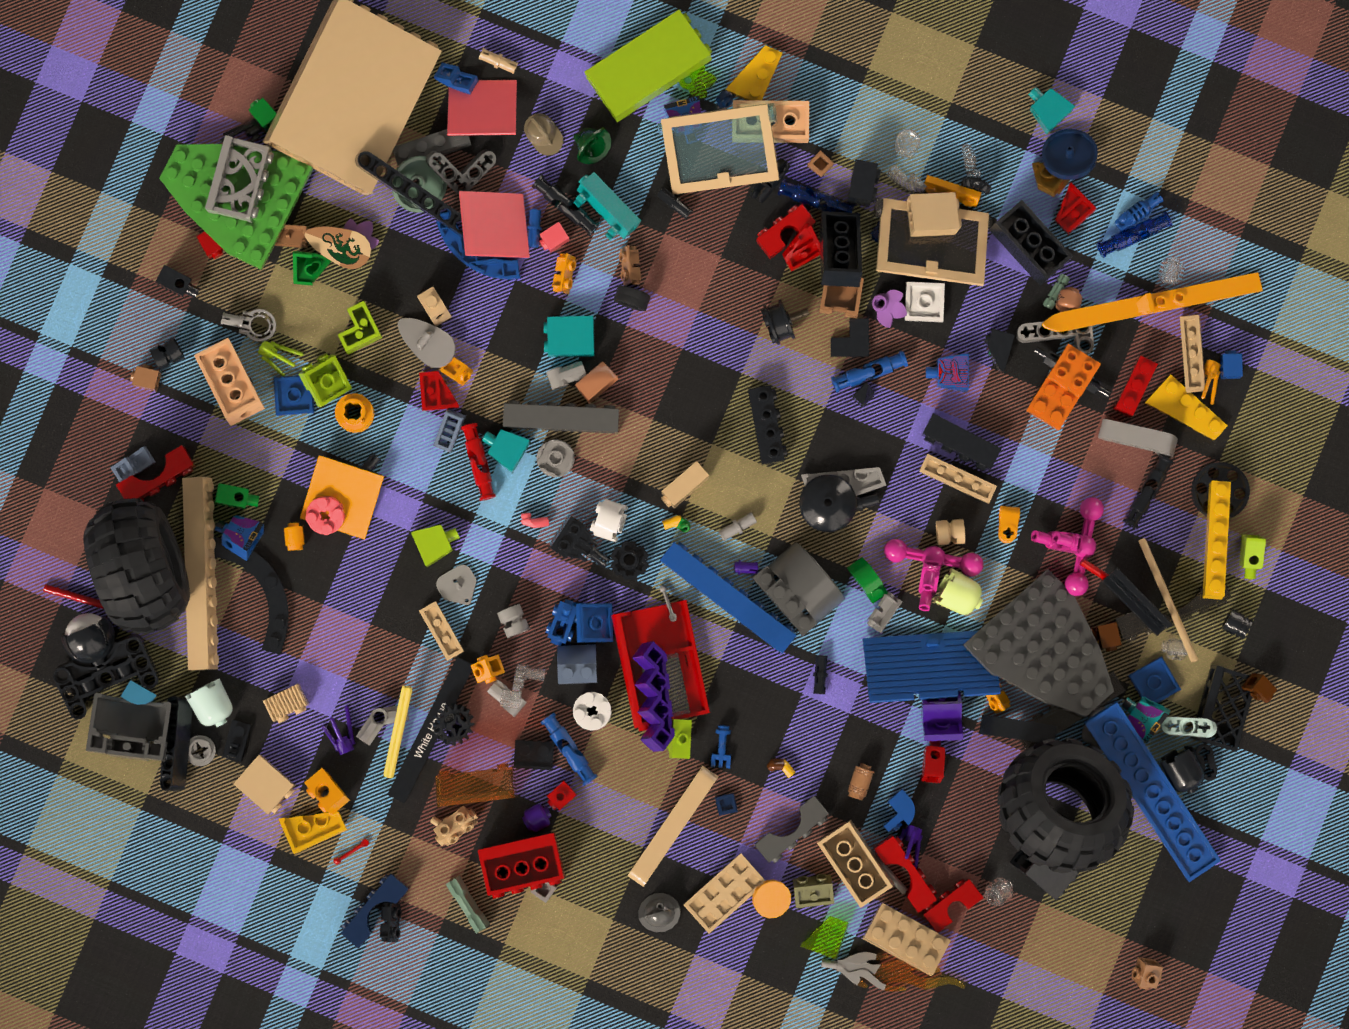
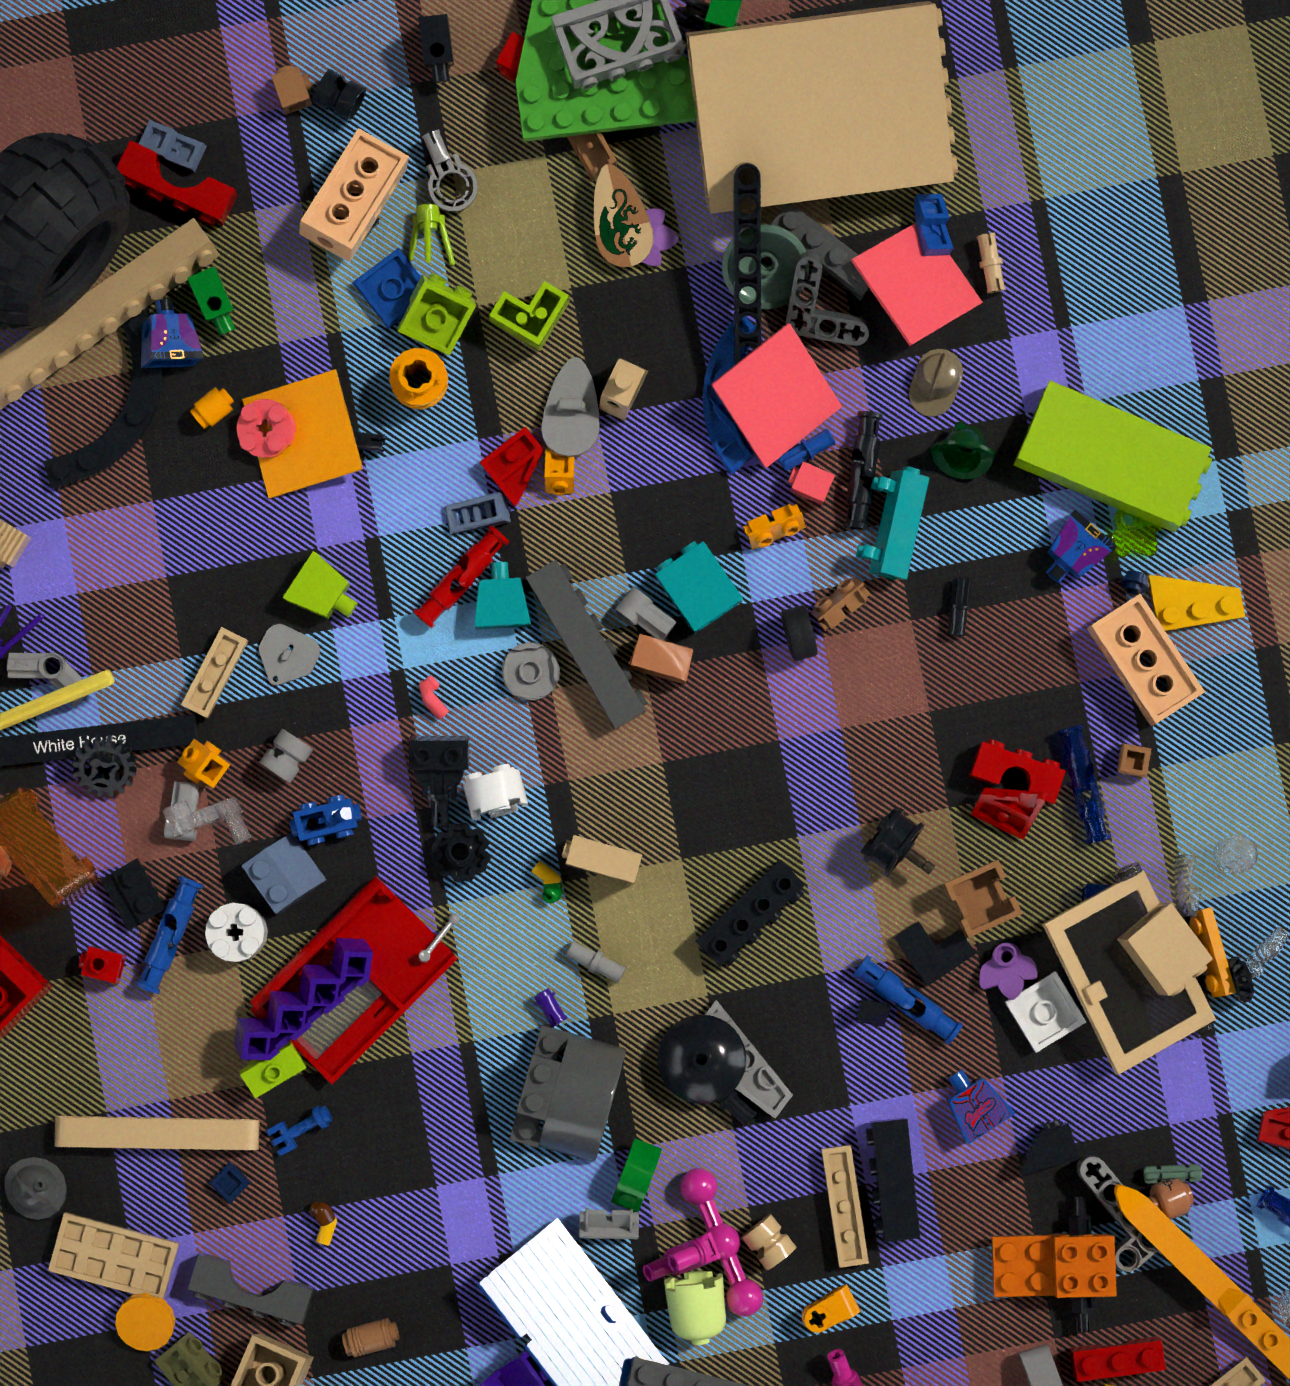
camera: 50 degrees right, 0 degrees up
(308, 267) = (566, 198): green slope -> none
(537, 817) = (54, 951): dark purple head -> none
(594, 622) = (351, 860): blue plate -> none
(720, 148) = (1068, 619): clear light blue door -> none
(727, 597) = (496, 1011): blue brick -> none
(764, 189) = (1069, 710): black hinge -> none
(820, 674) = (475, 1194): black pin -> none
(840, 249) = (1039, 859): black brick -> none
(862, 183) = (1145, 830): black brick -> none
(1031, 243) = (1213, 1100): black brick -> none

